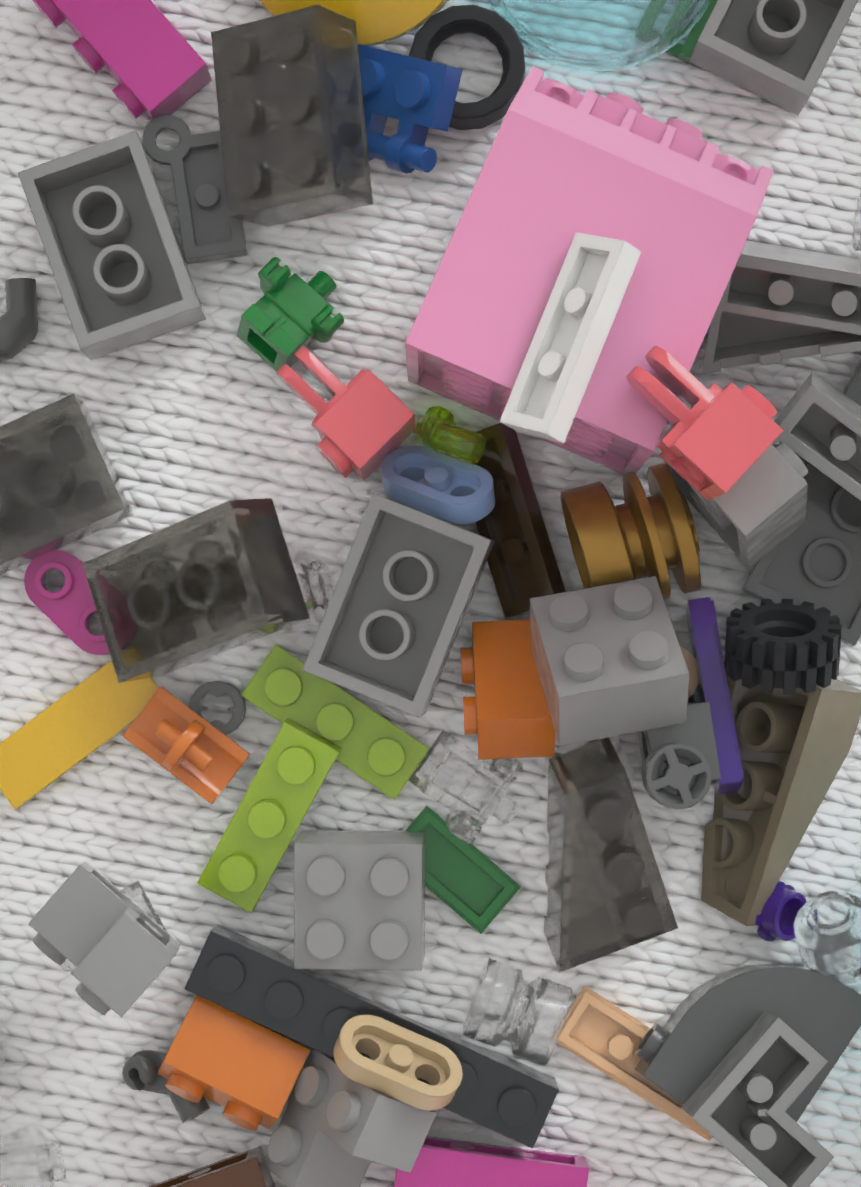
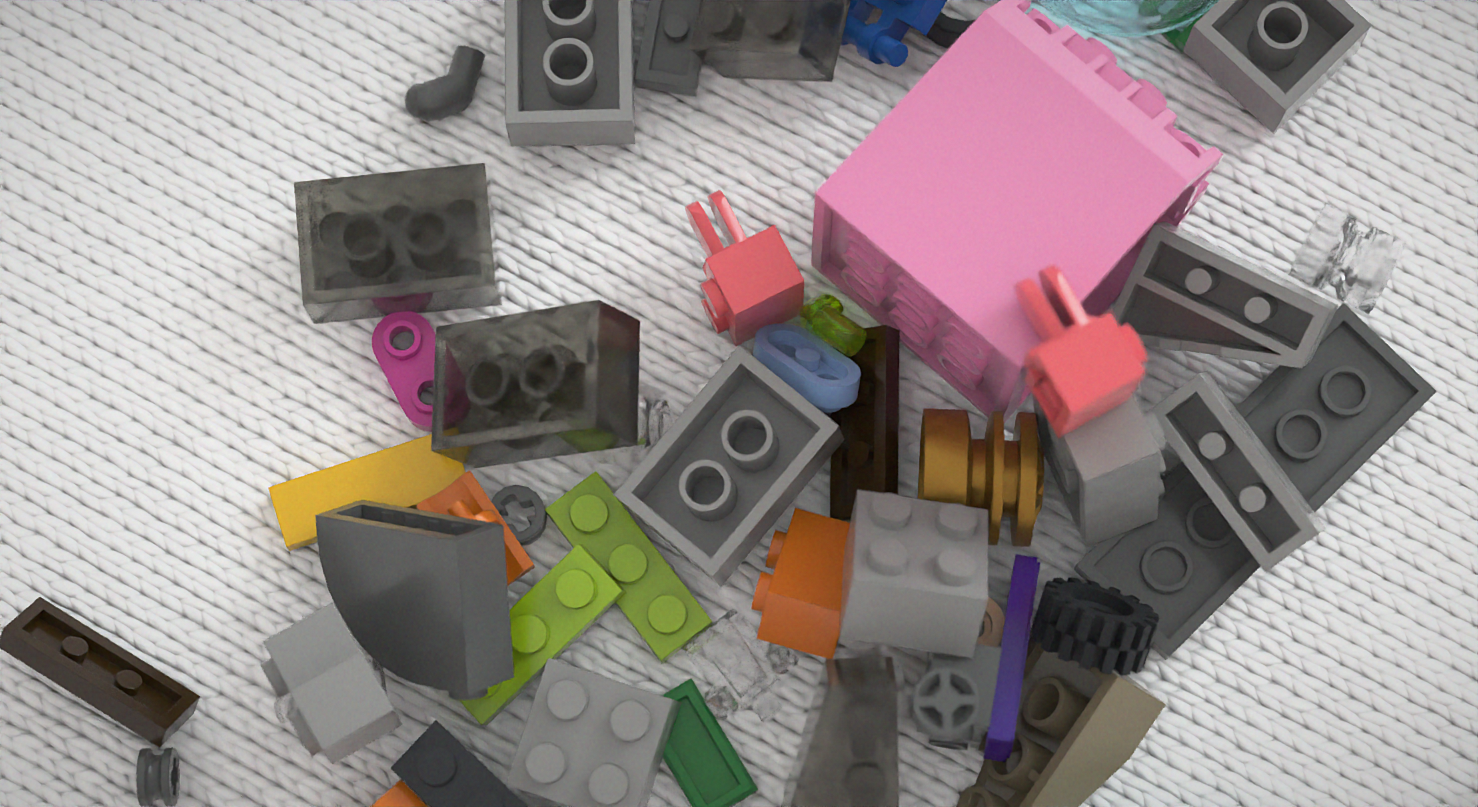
camera: 20 degrees right, 10 degrees down
(155, 819) = (421, 593): none -> dark grey brick
(288, 314) = (715, 160): green piece -> none
(570, 336) = (972, 232): white plate -> none

